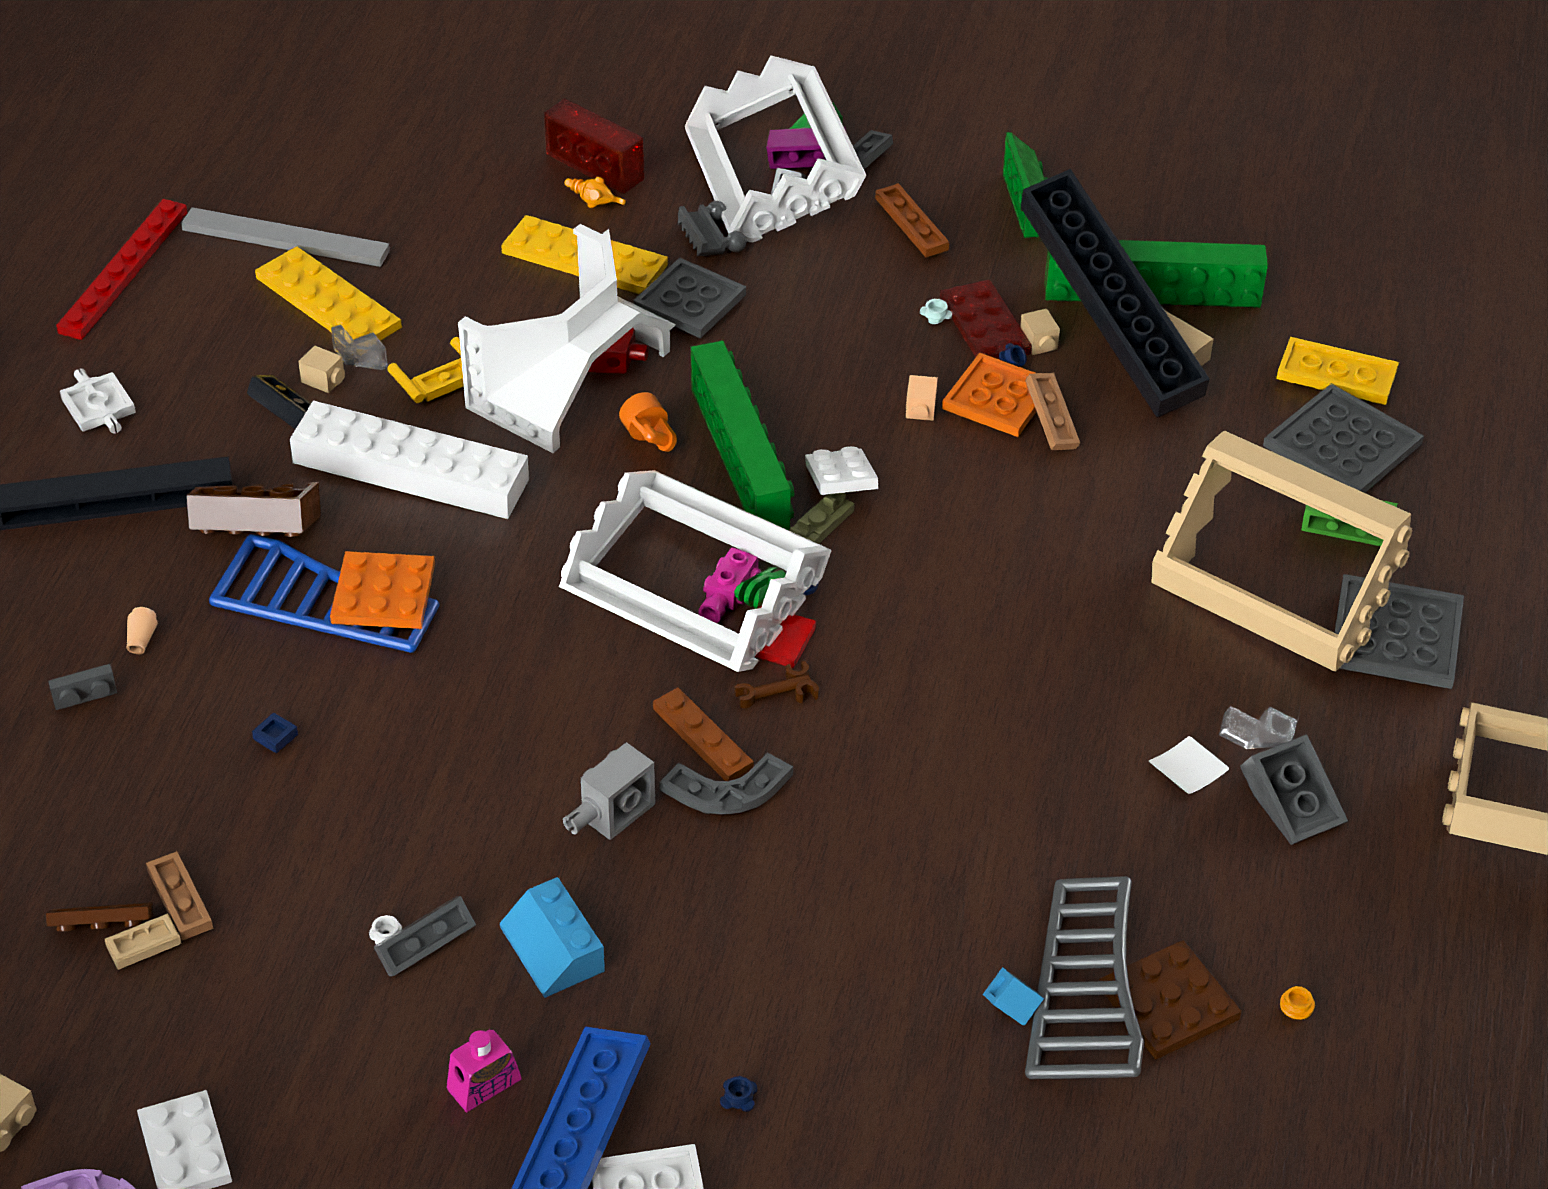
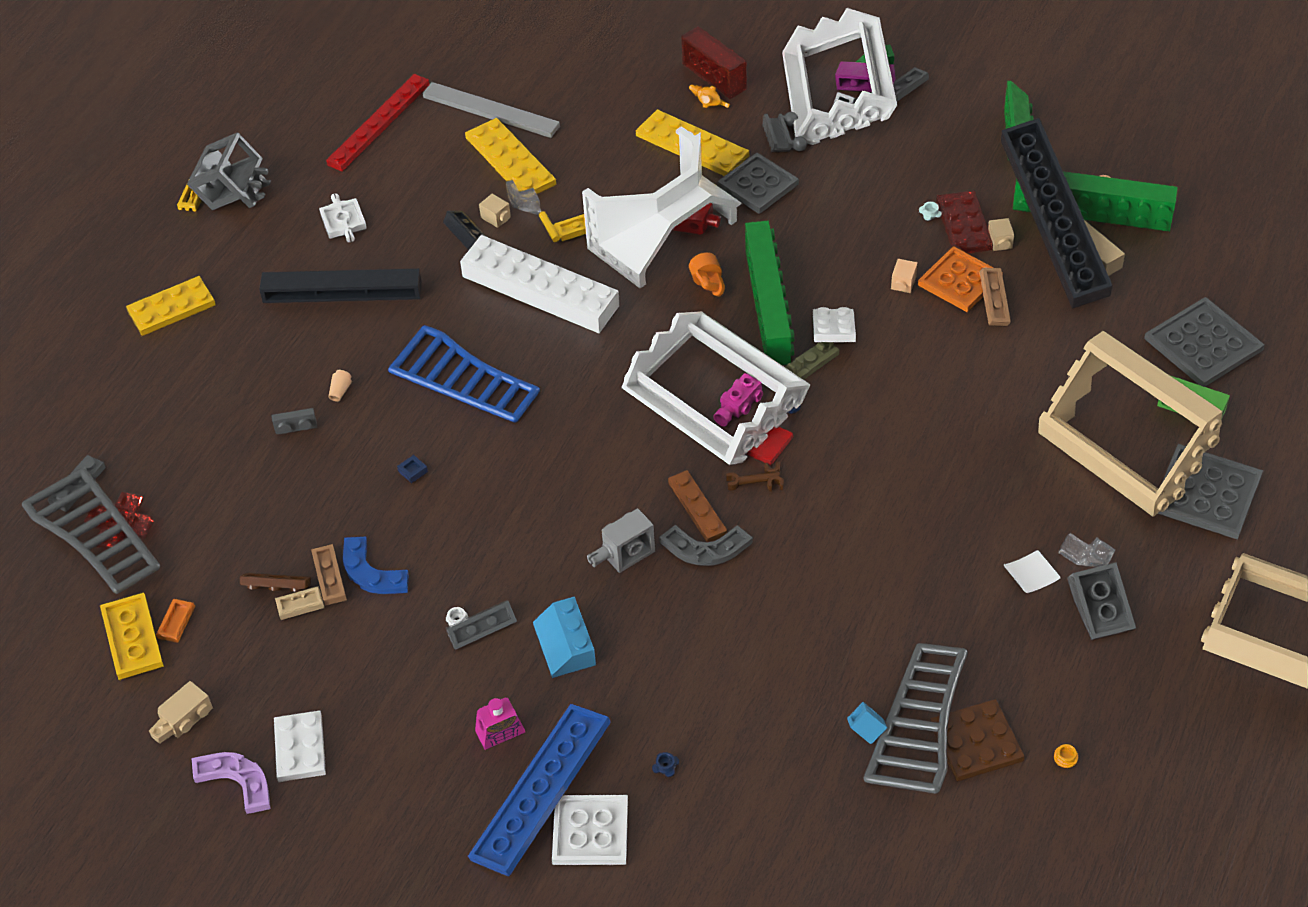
camera: 15 degrees right, 5 degrees up
(237, 892) = (368, 577): none -> blue plate
(254, 509) = (429, 308): wedge -> none
(383, 590) = (503, 376): orange plate -> none
(755, 588) = (751, 405): green arm -> none
(912, 220) = (928, 139): dark orange plate -> none
(1013, 354) = (977, 250): dark blue plate -> none
(1351, 371) = (1219, 287): yellow plate -> none

